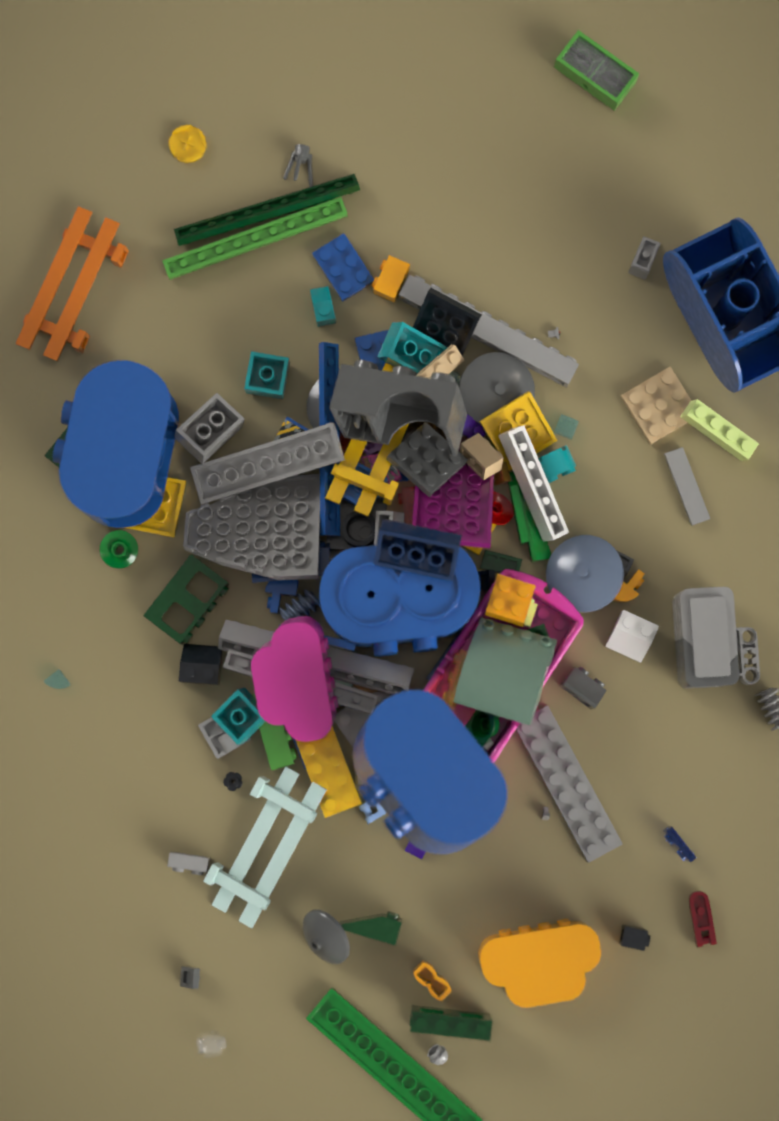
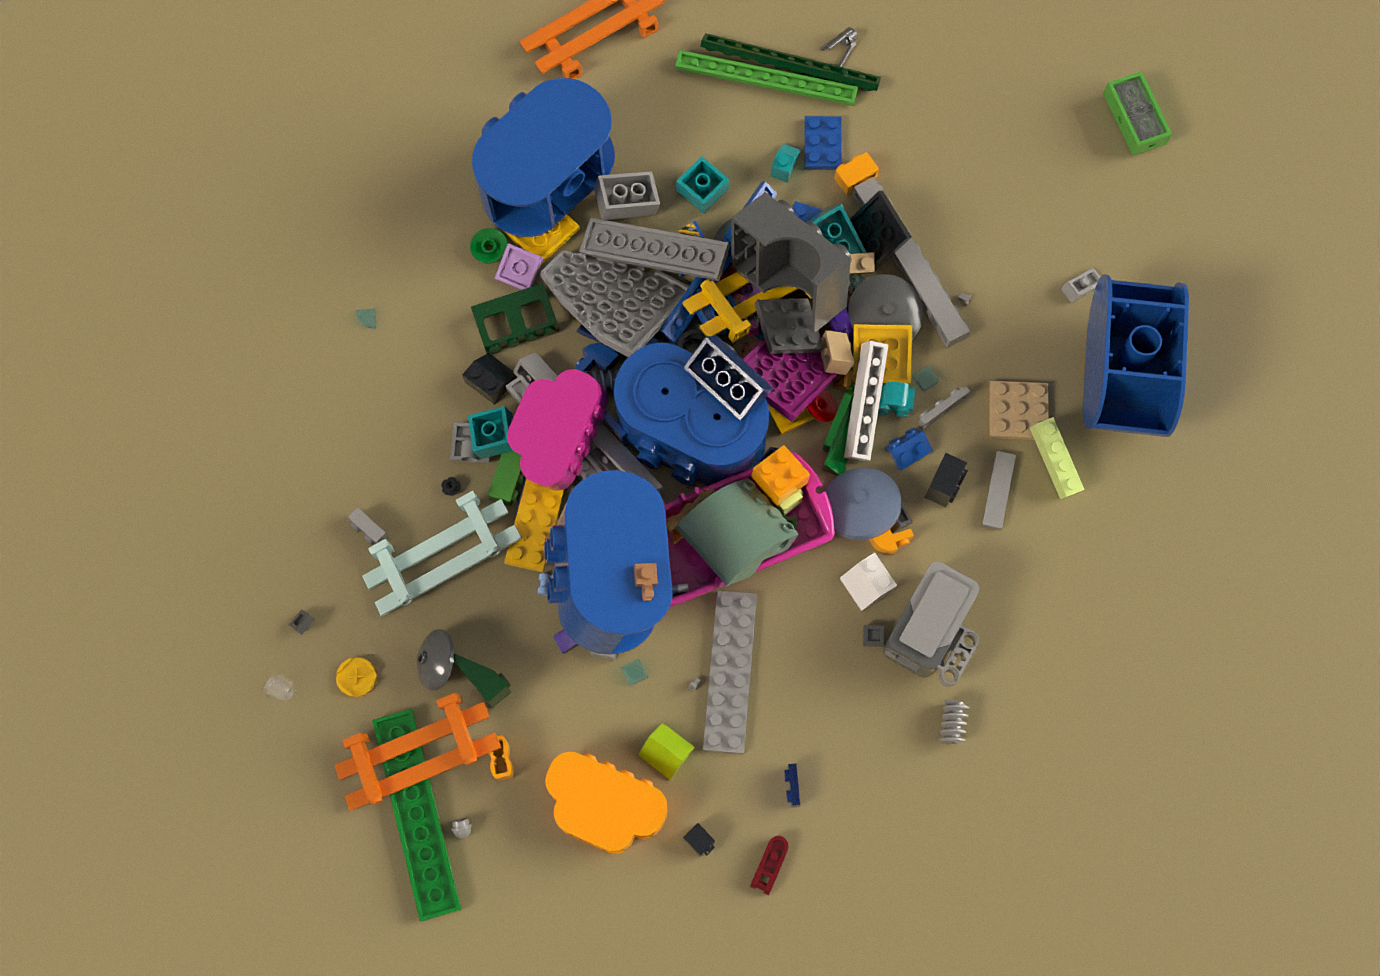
camera: 35 degrees right, 10 degrees down
(158, 552) = (518, 267): none -> lavender tile
(266, 991) = (356, 677): none -> yellow tile
(378, 978) = (455, 722): none -> orange fence
(450, 1023) = (489, 802): dark green window -> none
(472, 774) = (646, 577): none -> medium nougat plate
(483, 726) = (688, 569): dark green piece -> none
(492, 838) = (634, 672): none -> clear light blue tile
(499, 562) = (795, 446): dark green plate -> none
(559, 883) = (665, 751): none -> lime slope
(583, 687) = (796, 597): dark grey slope -> none
(591, 498) = (909, 448): none -> blue bracket
(597, 443) = (943, 407): none -> light grey plate
(642, 508) = (944, 484): none -> black brick
(664, 678) = (873, 636): none -> dark grey plate

